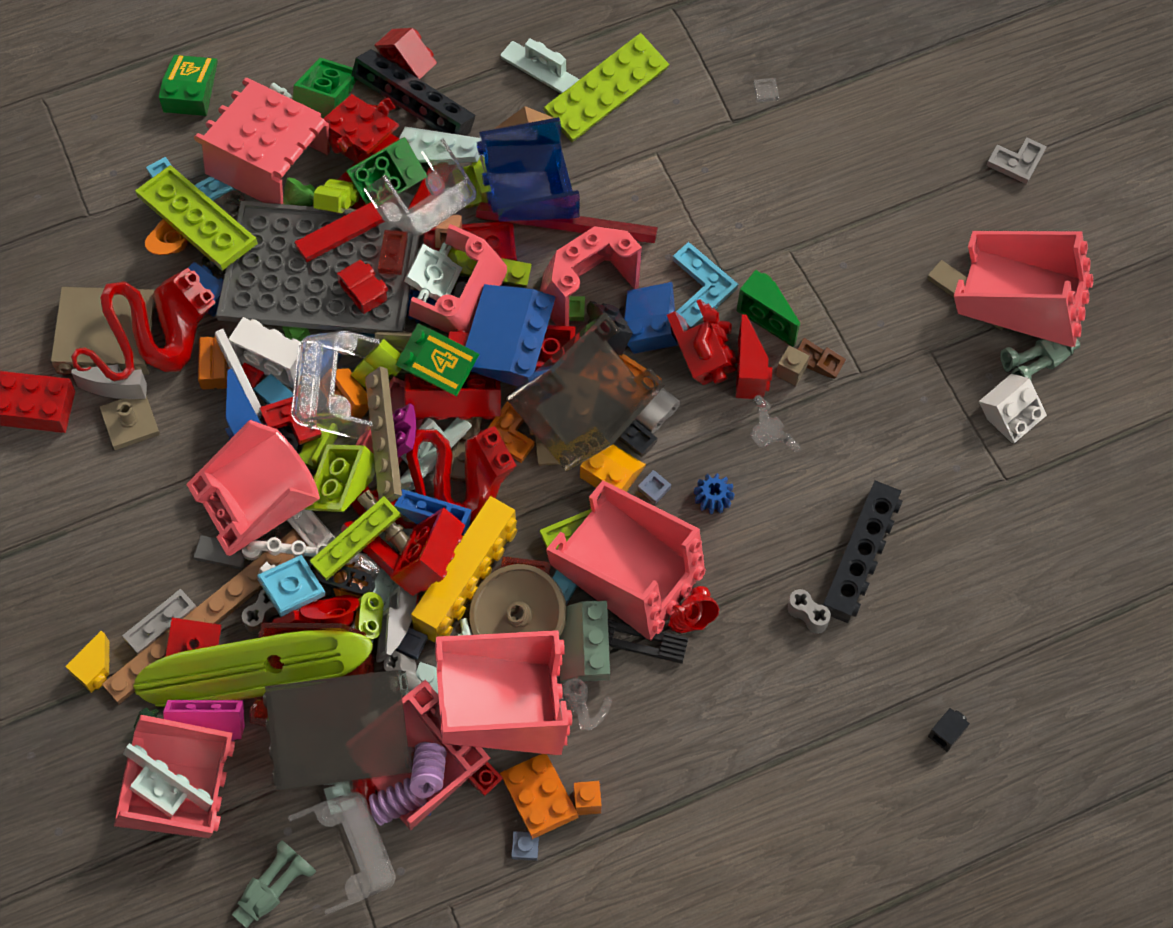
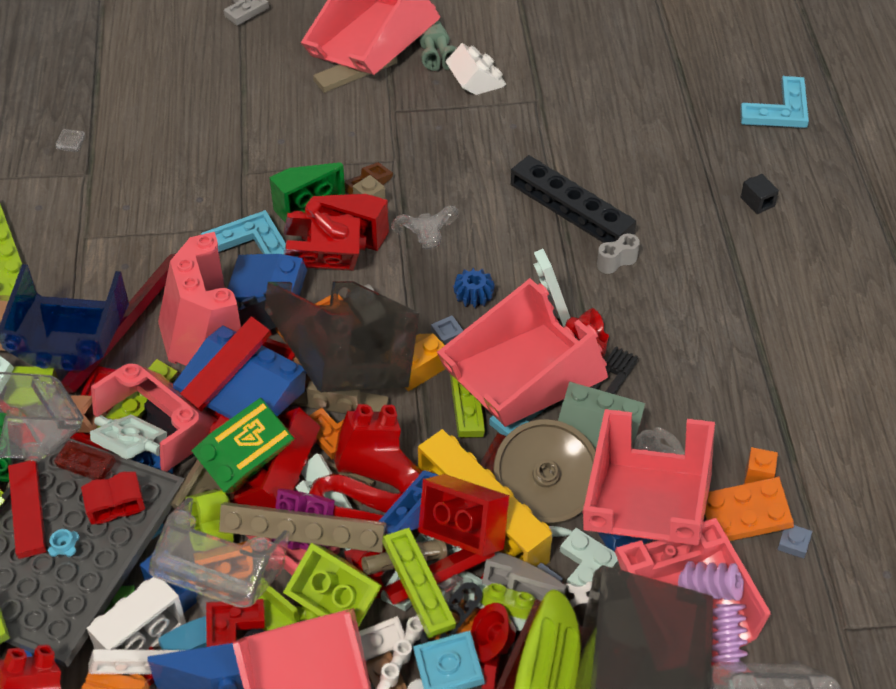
camera: 70 degrees left, 15 degrees down
(313, 264) = (60, 537): none -> medium azure plate
(509, 314) = (226, 363): none -> red tile
(712, 556) = (550, 282): none -> light aqua plate
(1098, 743) = (792, 112): none -> medium azure plate

